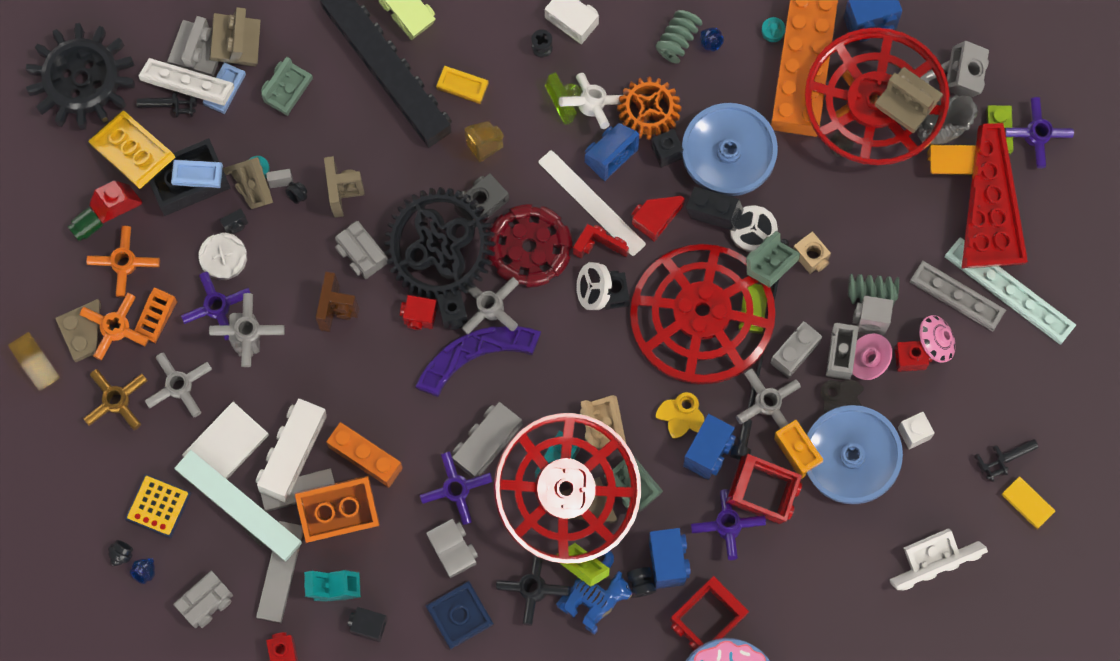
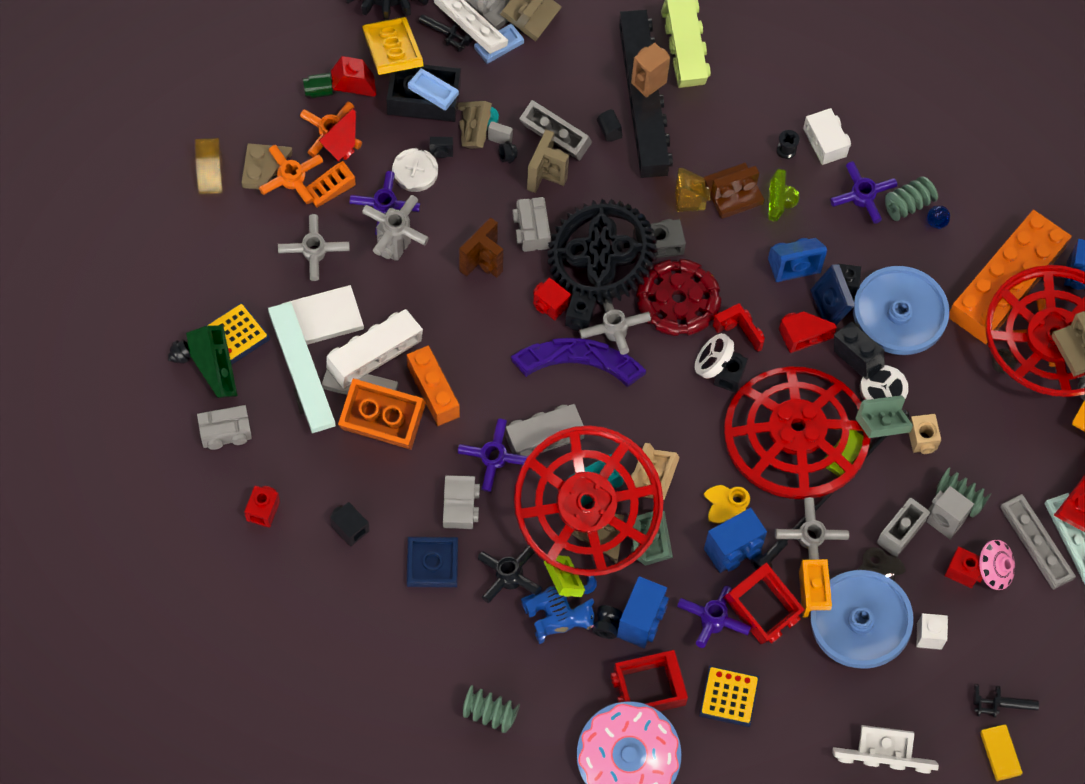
camera: 25 degrees right, 10 degrees down
(121, 407) = (258, 238): pearl gold bar -> none
(140, 267) = (341, 137): none -> red slope
(143, 570) = (190, 376): clear blue plate -> none
(152, 542) = (211, 355): none -> dark green slope
(278, 581) = (296, 448): light grey tile -> none
(285, 86) = (550, 66): sand green bracket -> none
(321, 146) = (565, 135): none -> light grey brick
(332, 586) = (338, 476): teal brick -> none
(373, 114) = (610, 125): none -> black brick
(383, 44) = (650, 69): none -> medium nougat brick
(462, 84) = (700, 143): yellow tile -> none
(519, 113) = (734, 189): none -> reddish brown bracket
(591, 100) = (803, 209): white bar -> none
(591, 201) = (754, 292): white sticker -> none
(634, 44) = (861, 199): none -> dark purple bar
(658, 92) = (853, 235): orange gear -> none
(664, 171) = (832, 295): none -> dark blue tile
(773, 29) = (997, 237): teal tile -> none
(779, 586) = (729, 696): none -> yellow tile
(796, 349) = (862, 505): light grey brick -> none
(871, 347) = (927, 547): bright pink dish -> none

